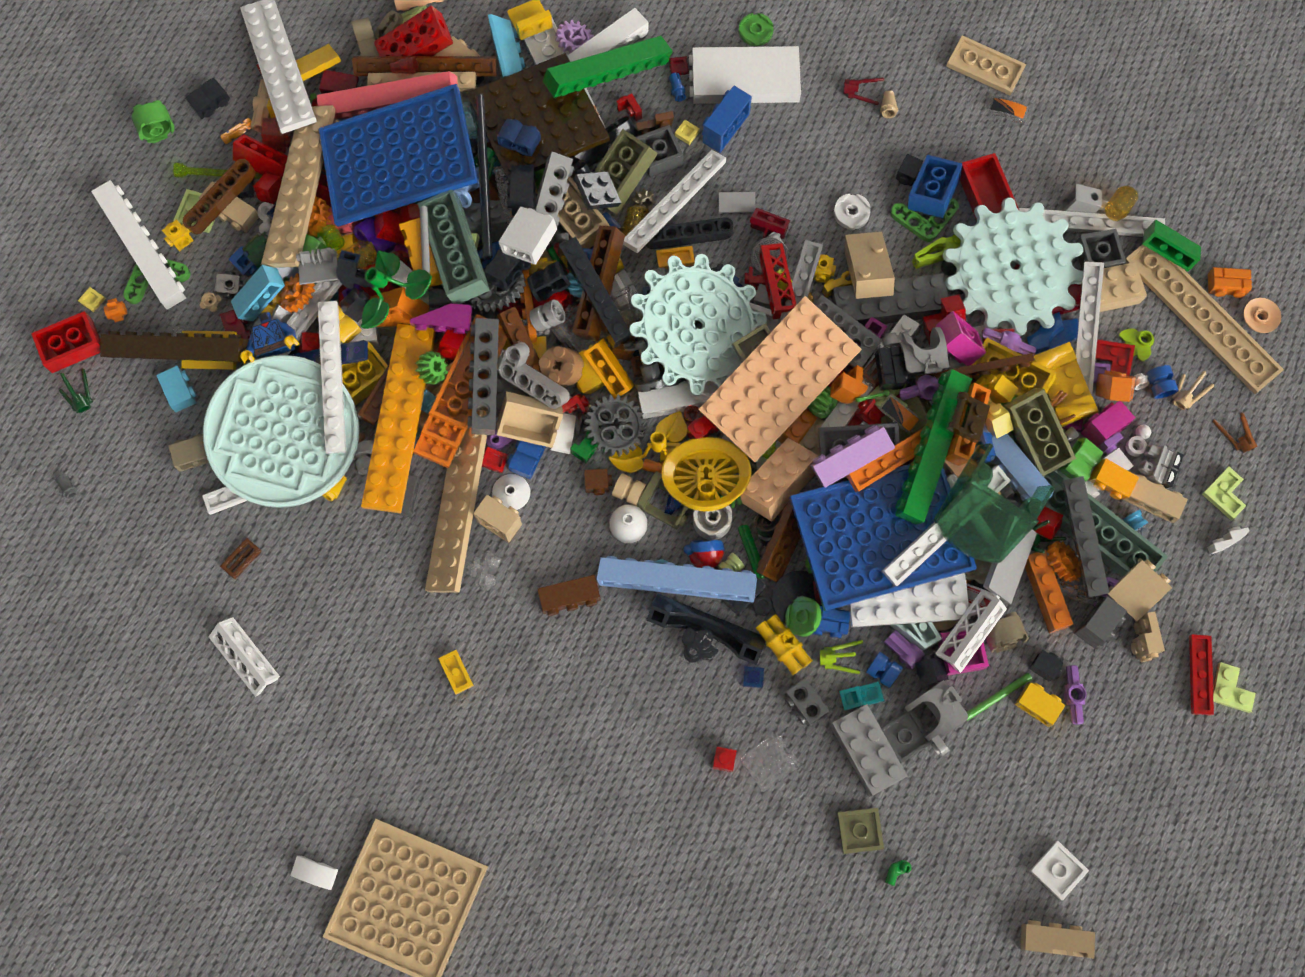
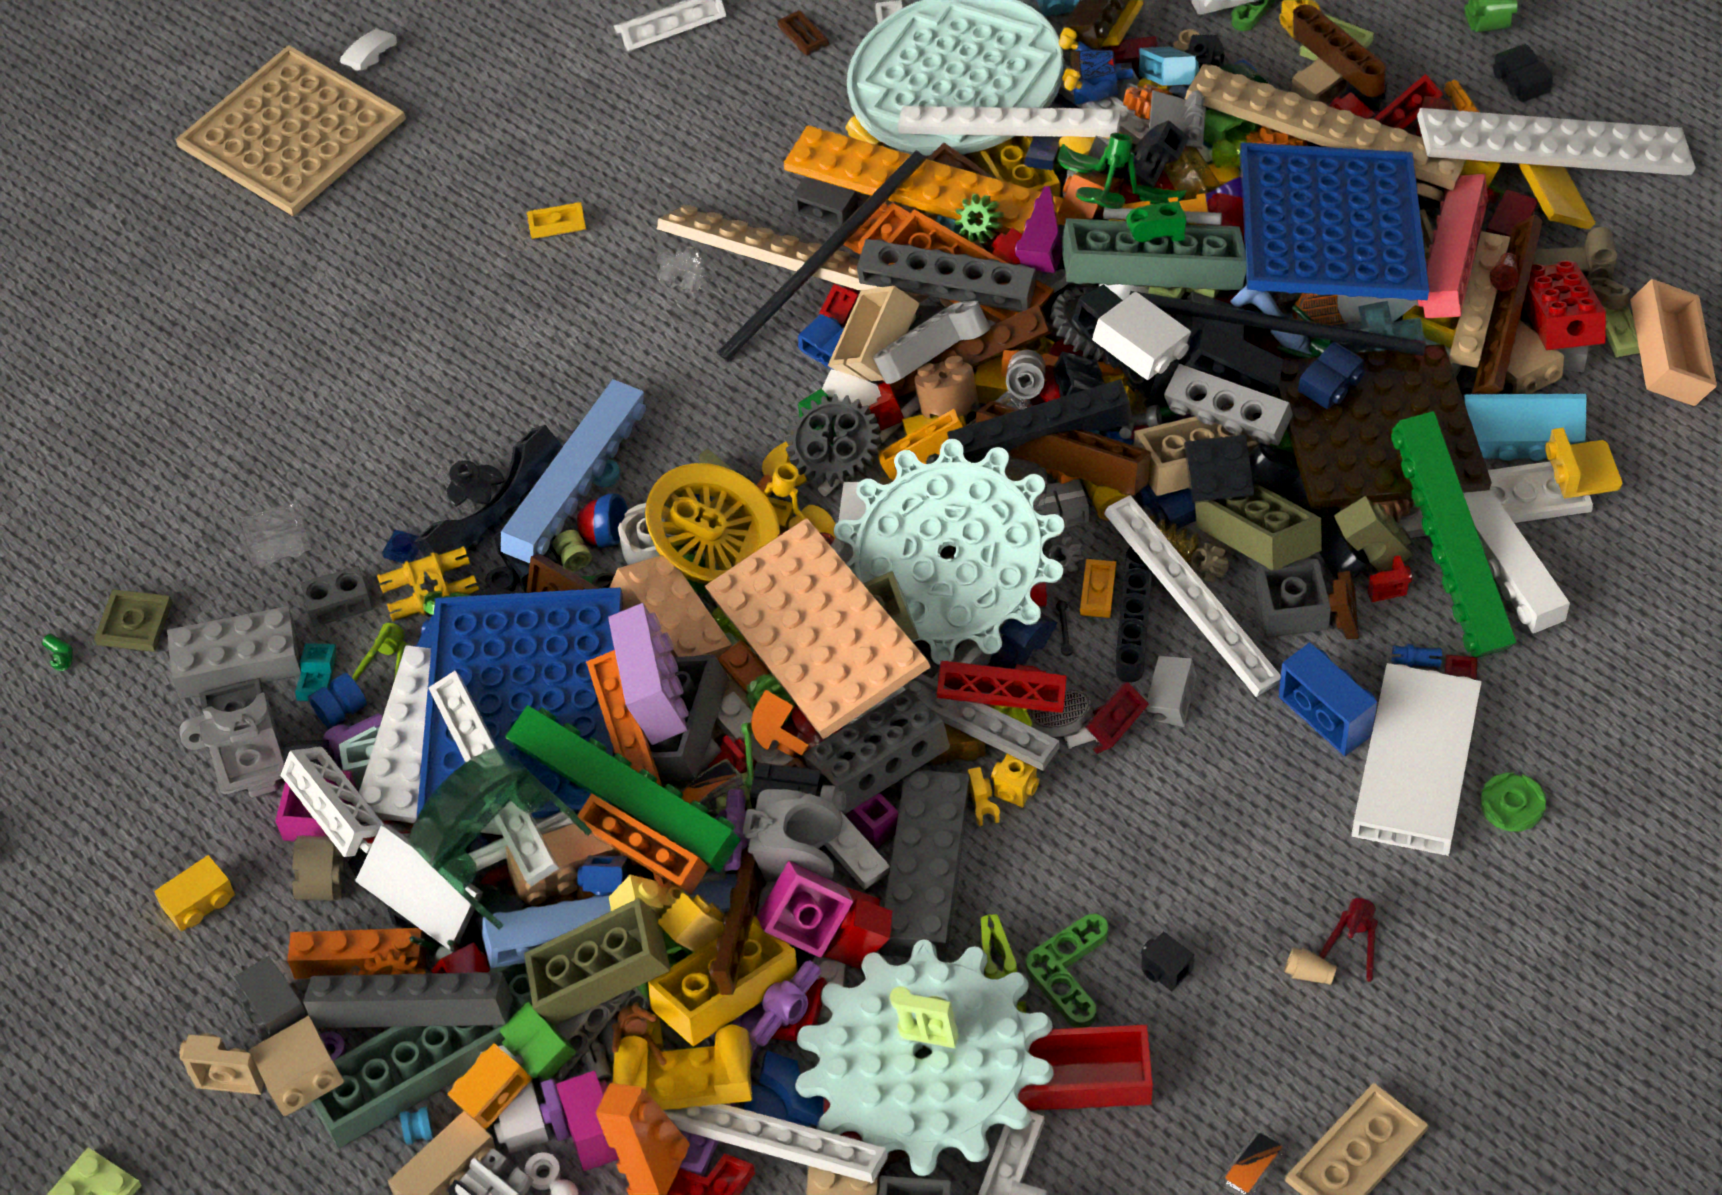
camera: 110 degrees right, 20 degrees down
(181, 170) = (1408, 34): clear neon green piece -> none
(440, 238) = (1157, 221): none -> green leg
(469, 469) = (806, 271): none -> black piece
(498, 518) = (743, 286): tan brick -> none
(518, 497) = (786, 332): white dish -> none
(569, 595) = (608, 352): reddish brown brick -> none
(572, 36) = (1547, 535): lavender gear -> none
(597, 481) = (762, 416): reddish brown brick -> none
(614, 108) = (1378, 534): none -> olive arch
(628, 489) = (737, 446): tan wheel -> none
(628, 523) = (683, 440): white cylinder -> none
(687, 132) = (1331, 646): light yellow plate -> none
(724, 759) = (303, 481): red brick -> none
(848, 220) = (1112, 873): white plate -> none
(869, 265) = (990, 829): tan brick -> none
(934, 186) = (1115, 976): blue brick -> none
(973, 420) = (635, 835): dark brown plate -> none
(998, 696) = (235, 848): bright green bar -> none
(1013, 254) = (934, 1018): none -> yellowish green plate
(1047, 665) = (247, 920): black brick -> none
(1075, 705) = (199, 951): medium lavender axle -> none
(1201, 674) = (133, 1143): red plate -> none

